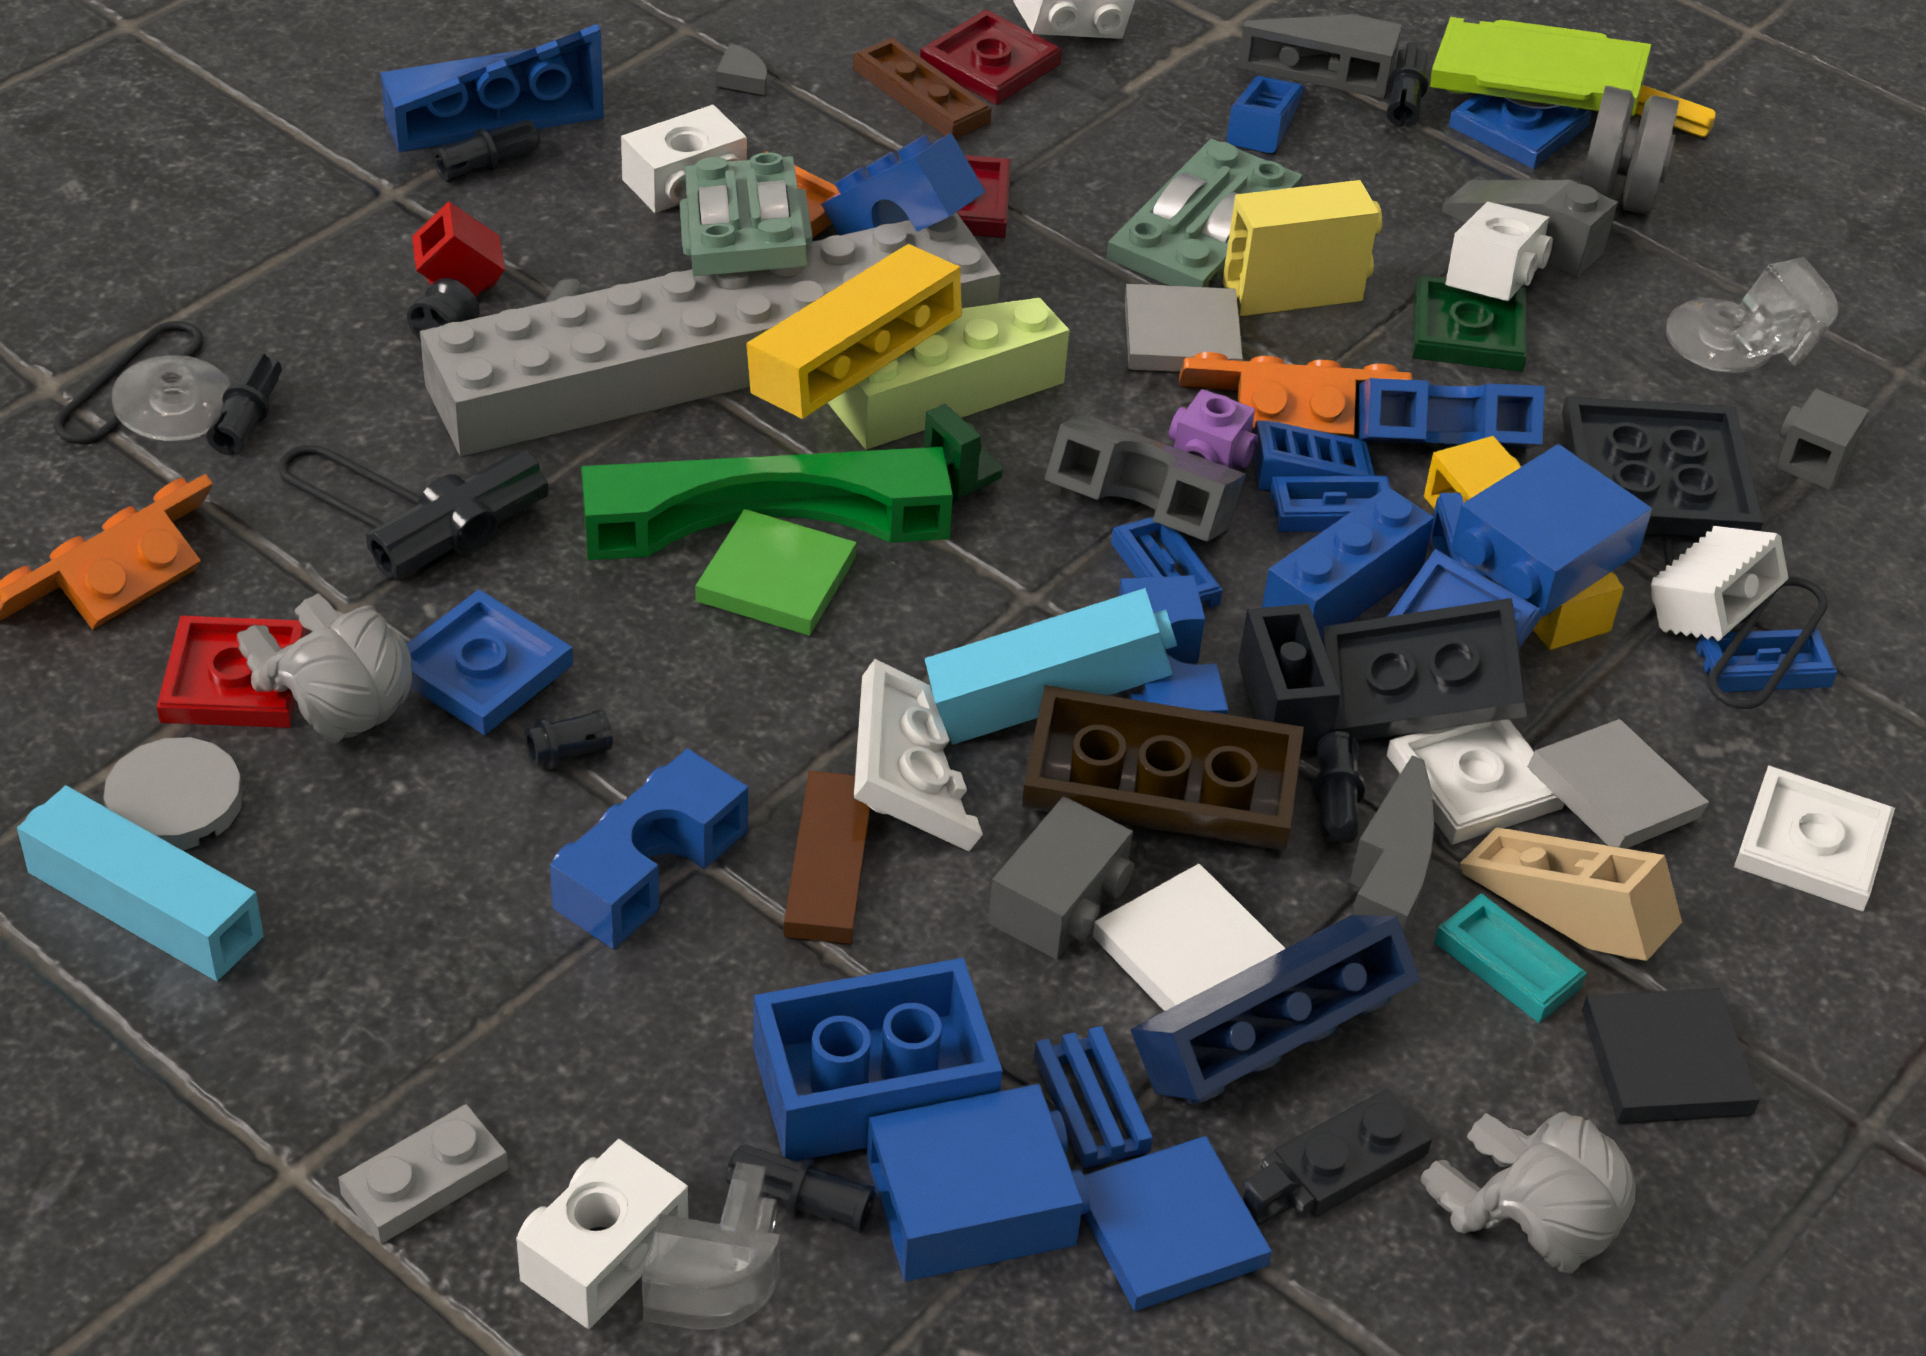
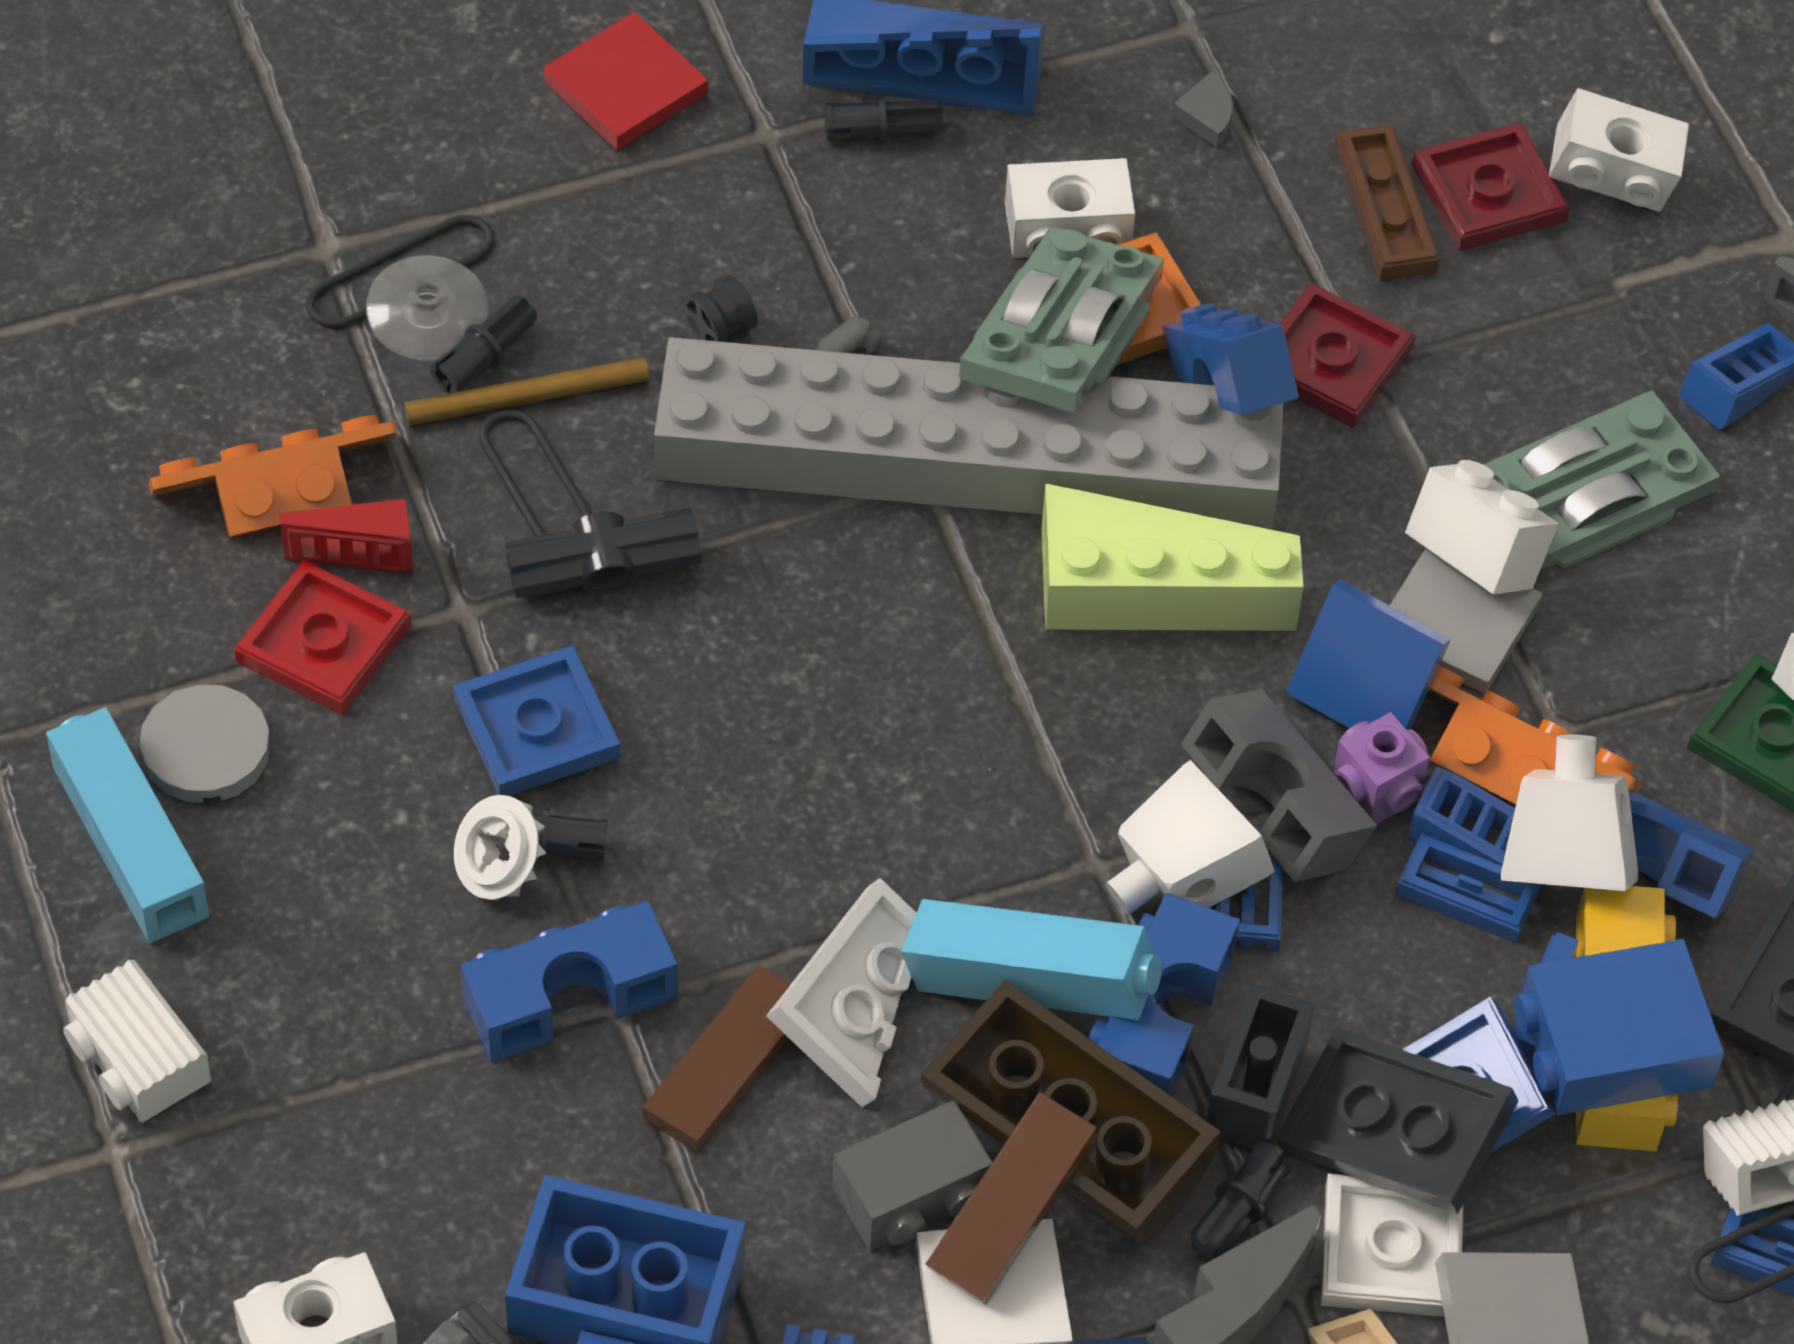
camera: 30 degrees right, 10 degrees up
(236, 576) = (350, 536): none -> red slope
(247, 189) = (625, 80): none -> red tile
(263, 1061) = (136, 1041): none -> white brick
(304, 427) = (526, 391): none -> pearl gold bar
(341, 674) = (397, 693): light grey hair -> none
(423, 1173) = (212, 1202): light grey plate -> none
(458, 249) = (769, 248): red brick -> none
(504, 739) = (478, 856): none -> white gear
(648, 505) = (782, 616): green arch -> none
(776, 572) = (866, 736): bright green tile -> none
(854, 330) = (1067, 512): yellow brick -> none
(966, 460) = (1114, 685): dark green bracket -> none
(1109, 536) = (1188, 846): none -> white torso
(1151, 365) = (1366, 660): none -> blue tile
(1167, 250) = (1482, 527): none -> white brick
(1171, 850) = (1012, 1198): none -> reddish brown tile
(1301, 247) = (1629, 578): light yellow brick -> none
(1353, 561) = (1412, 972): blue brick -> none
(1404, 406) = (1572, 824): none -> white torso

